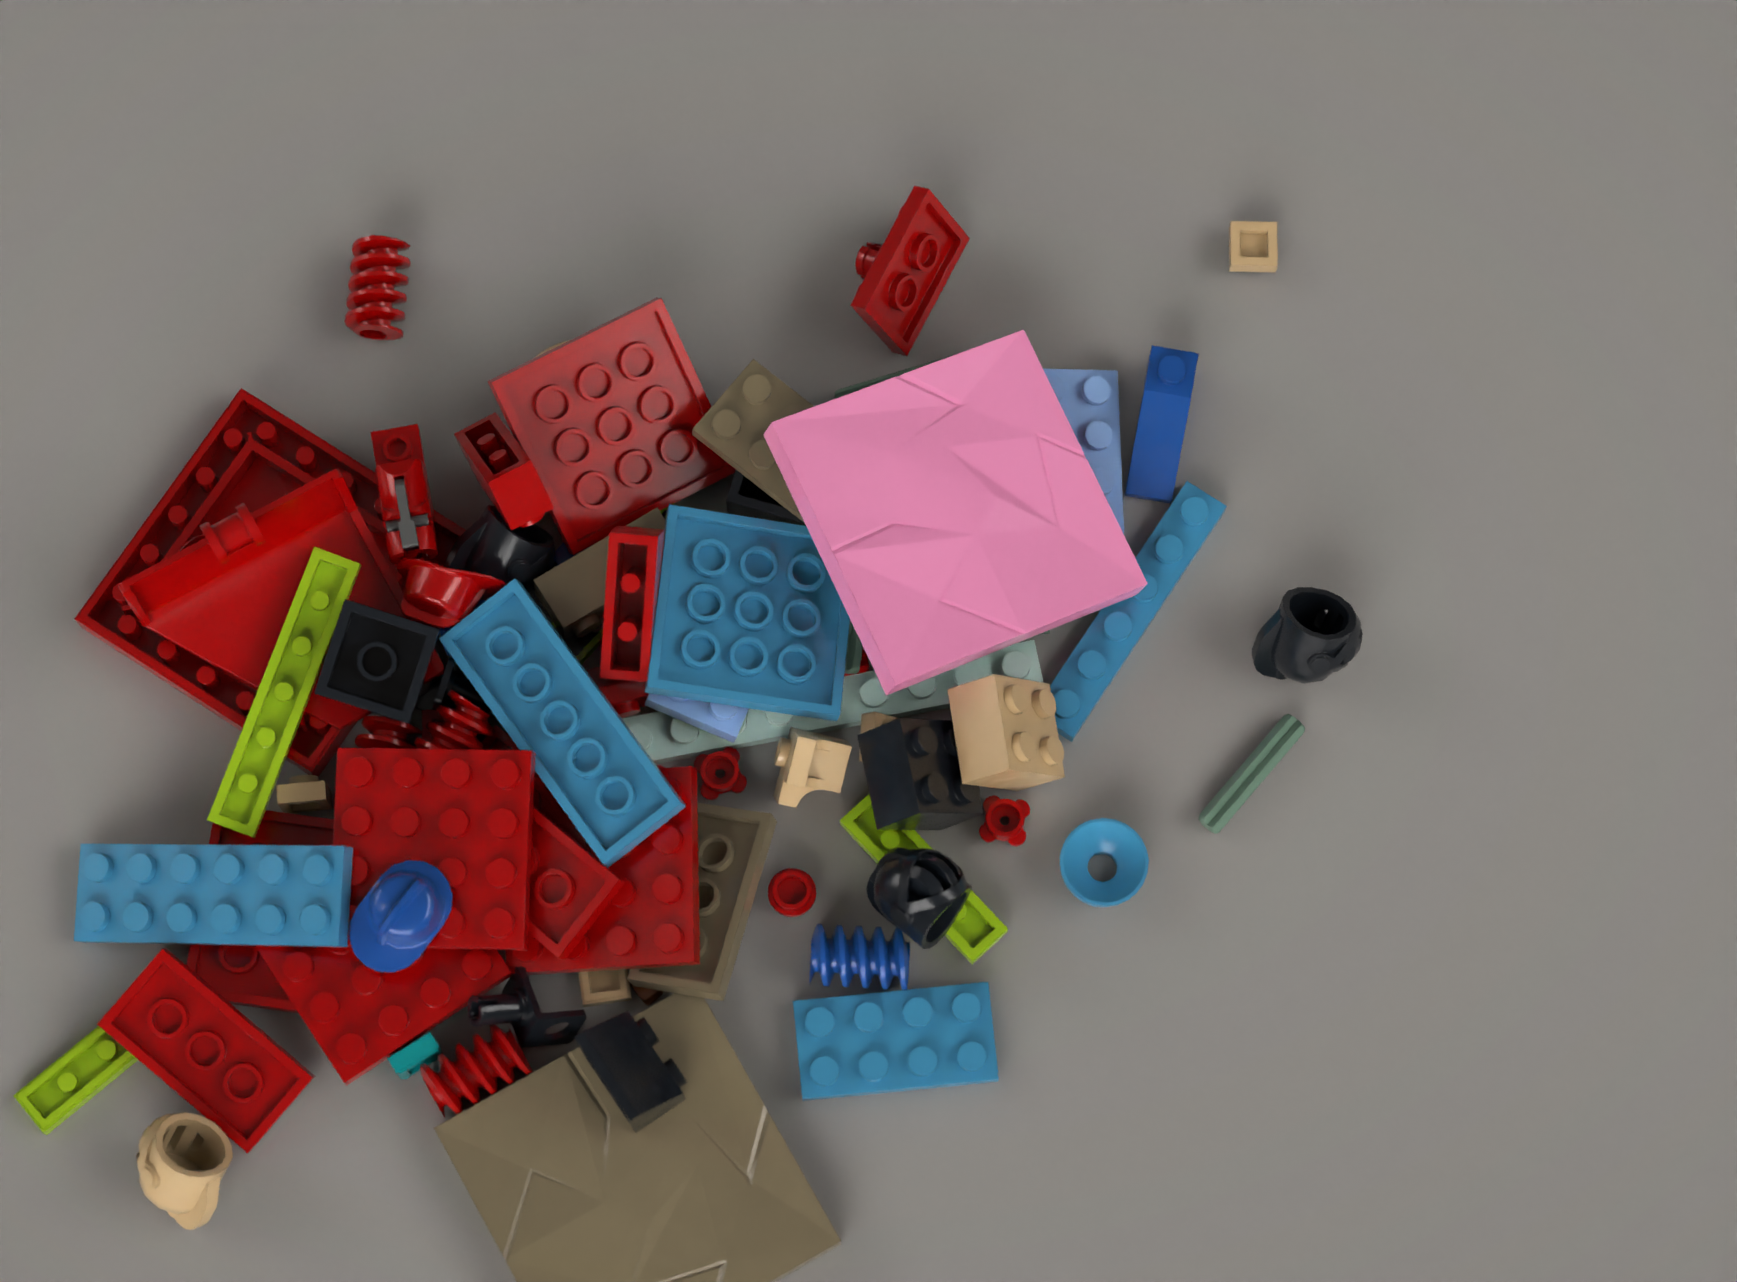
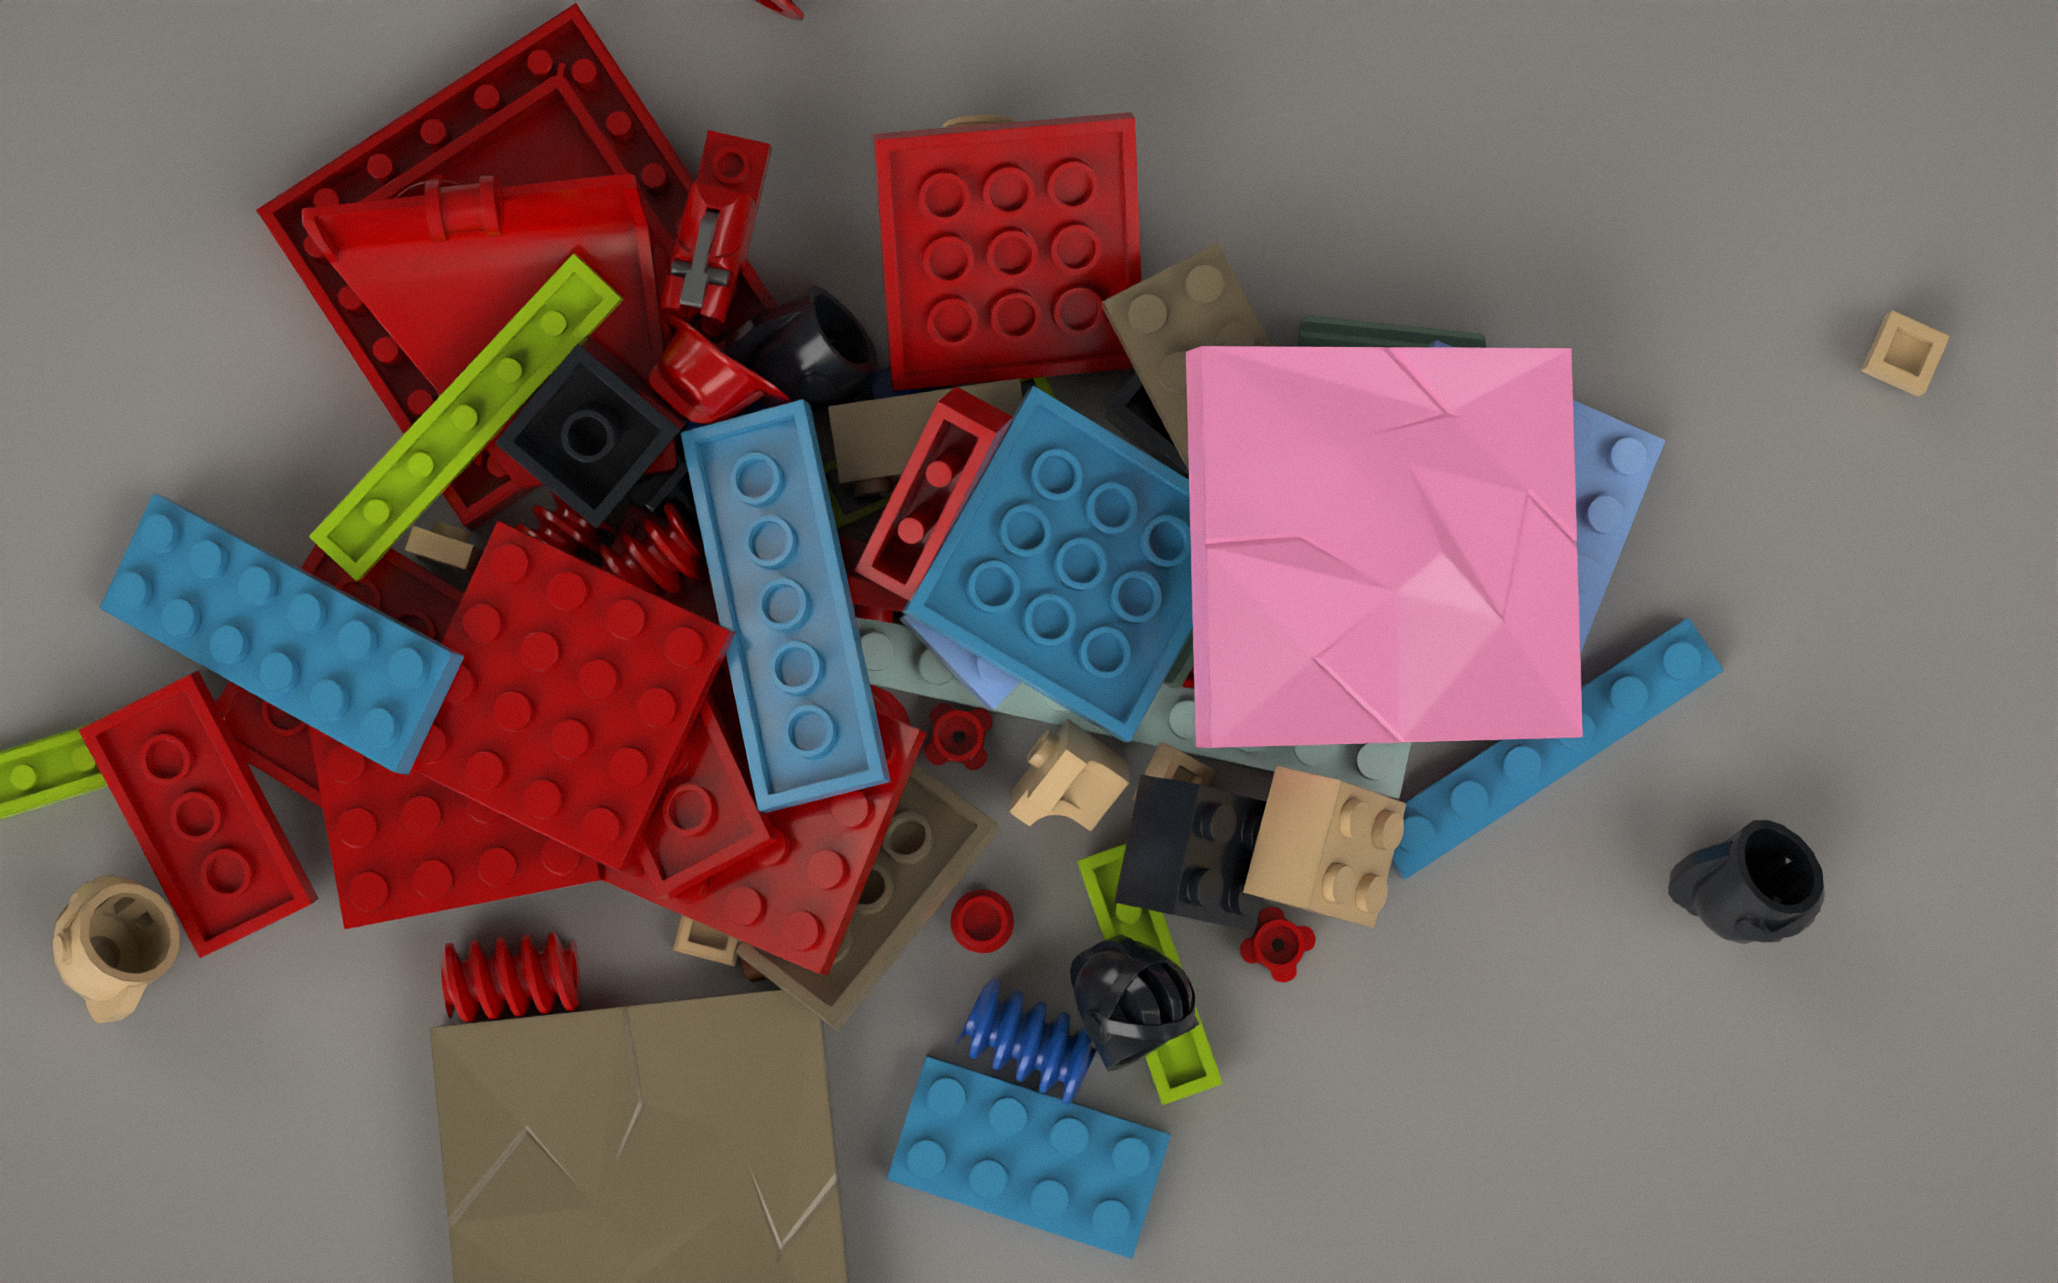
camera: 20 degrees right, 10 degrees up
(400, 916) = (487, 765): blue piece -> none
(408, 1060) = (446, 928): teal tile -> none
(504, 471) = (848, 254): red brick -> none
(521, 1009) = (593, 929): black bracket -> none
(631, 1068) = (690, 1072): black slope -> none
(908, 270) = (1460, 203): red plate -> none
(1110, 839) = (1408, 1061): dark azure piece -> none
(1161, 424) = (1689, 532): blue slope -> none
(1251, 773) = (1604, 1017): sand green axle -> none

